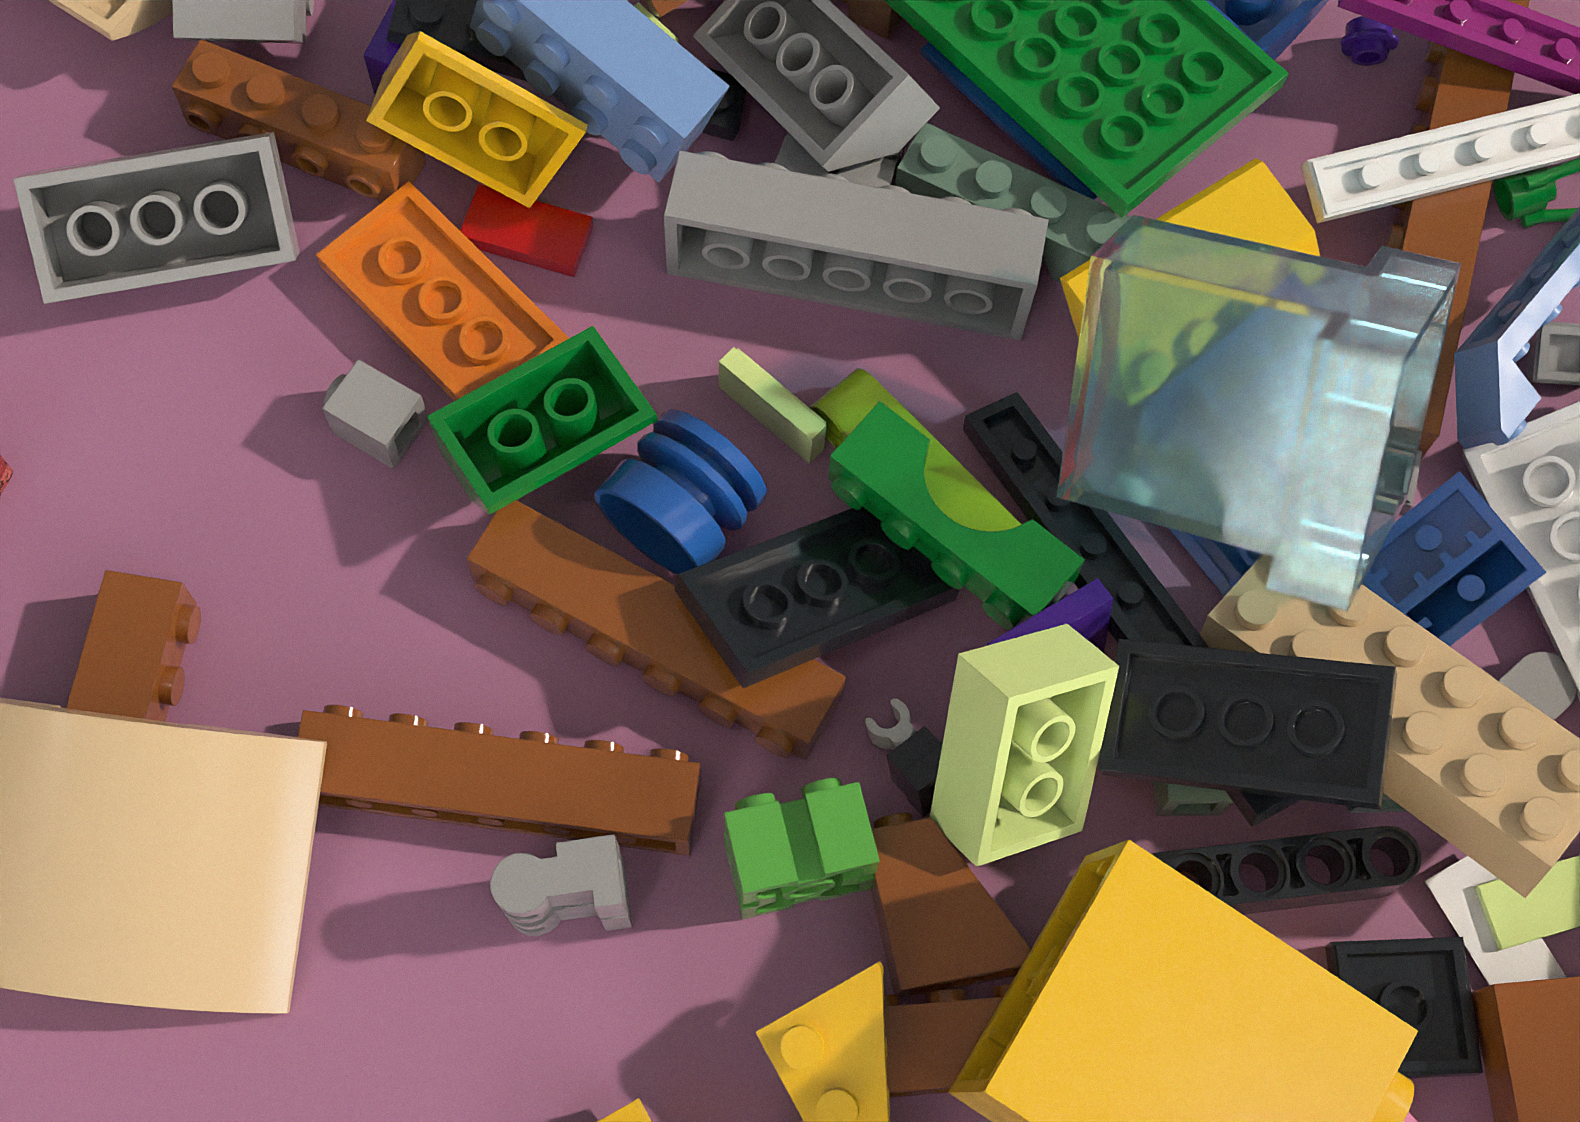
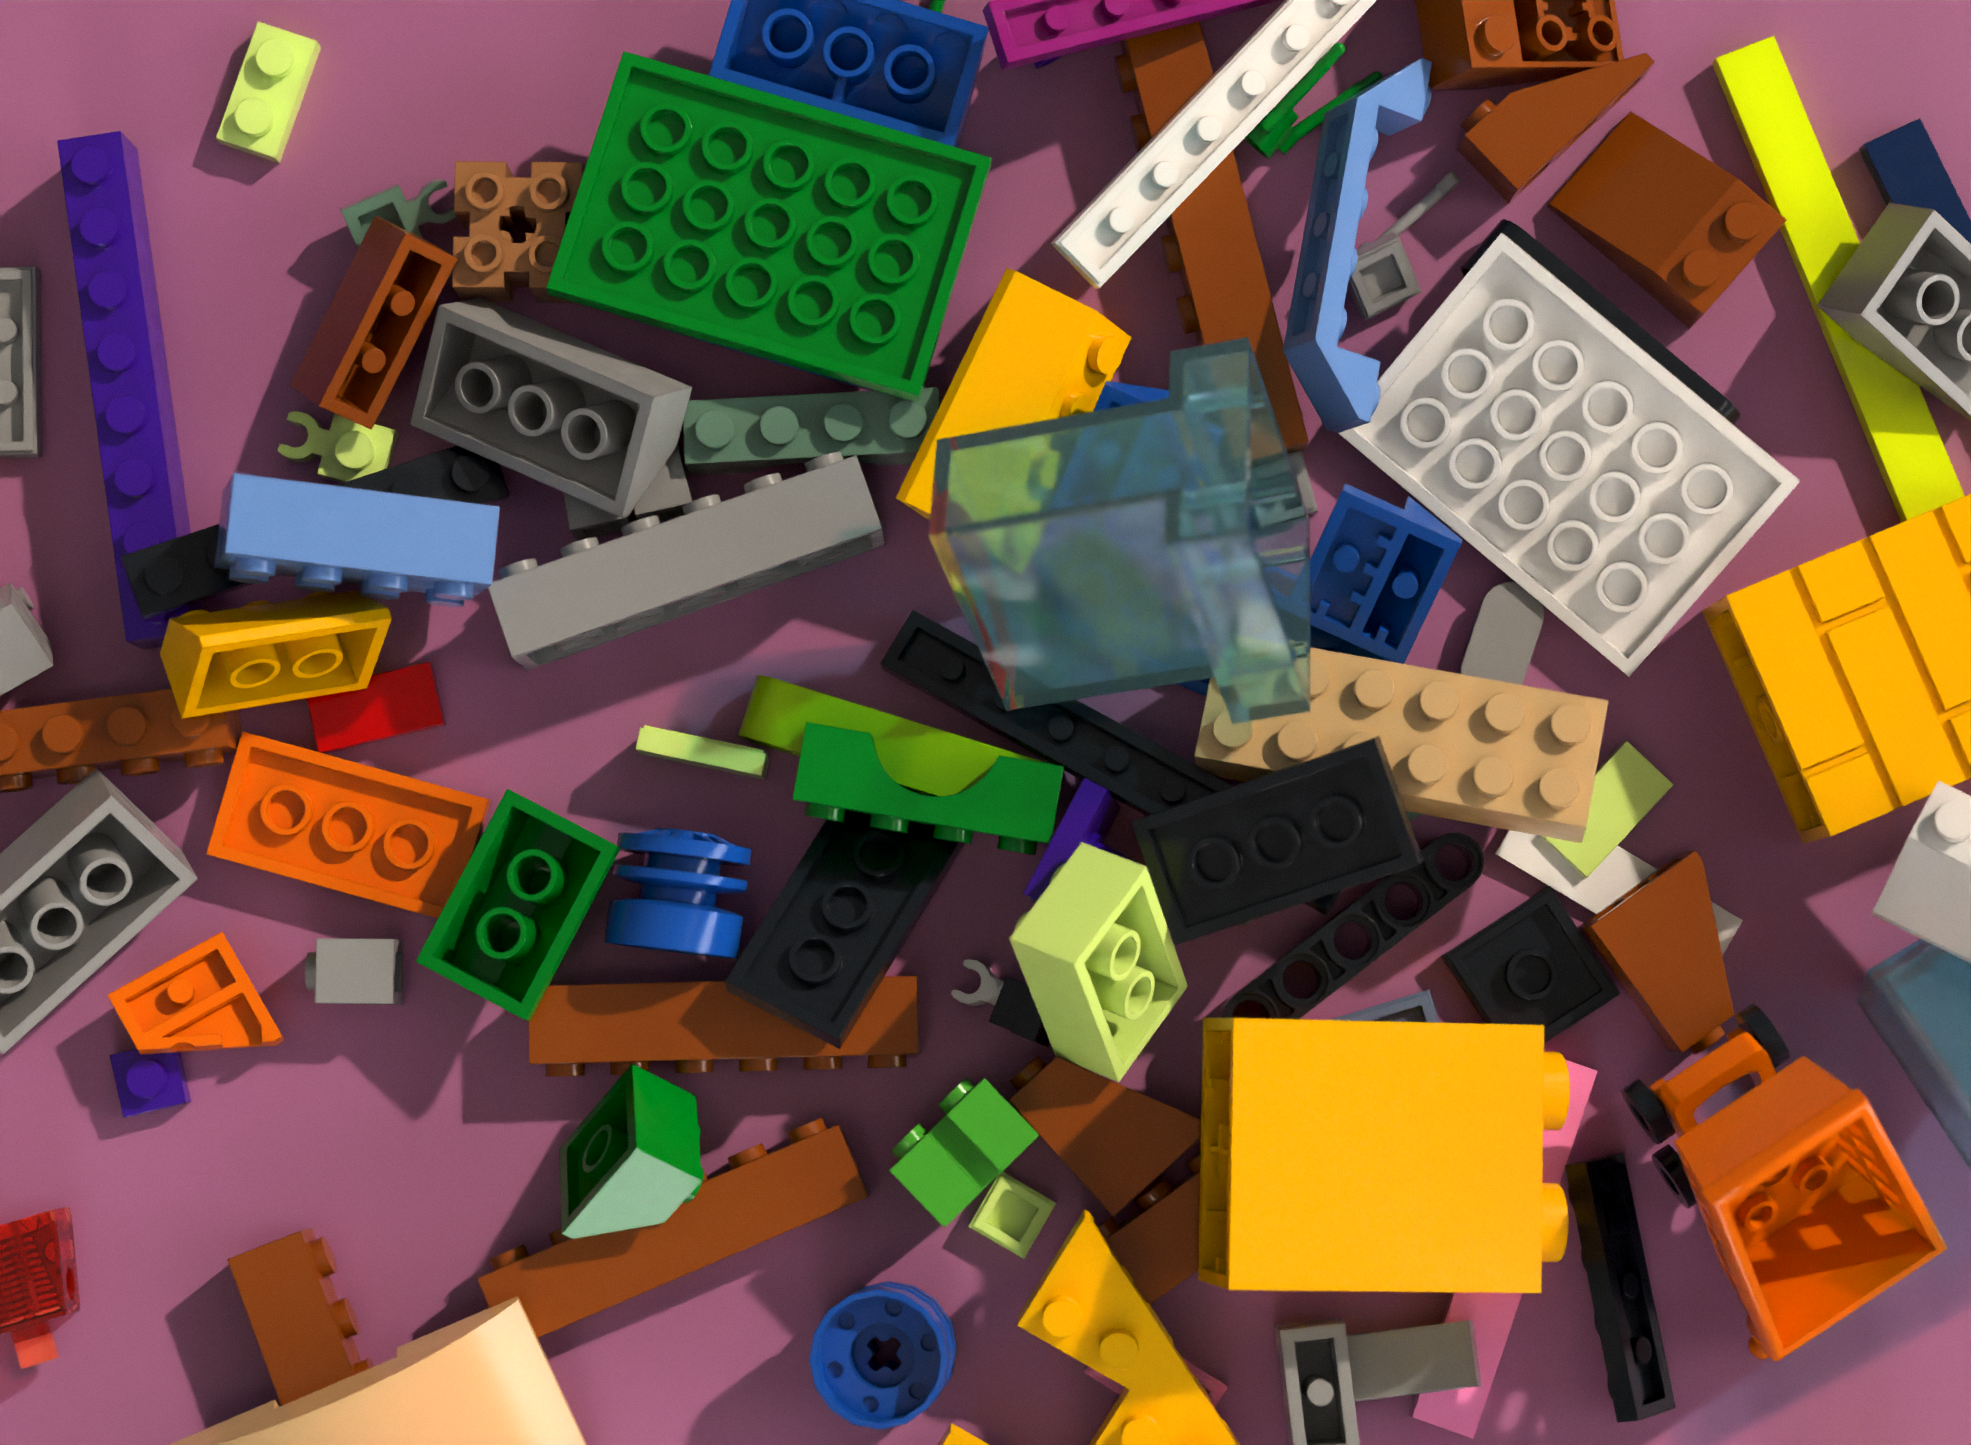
camera: 25 degrees left, 15 degrees up
(150, 406) = (149, 1081): none -> dark purple plate
(225, 363) = (195, 1004): none -> orange wing
(504, 685) = (631, 1158): none -> green slope
(578, 883) = (770, 1312): light grey legs -> none
(580, 976) = (845, 1352): none -> blue wheel
(806, 945) = (1012, 1214): none -> yellowish green tile

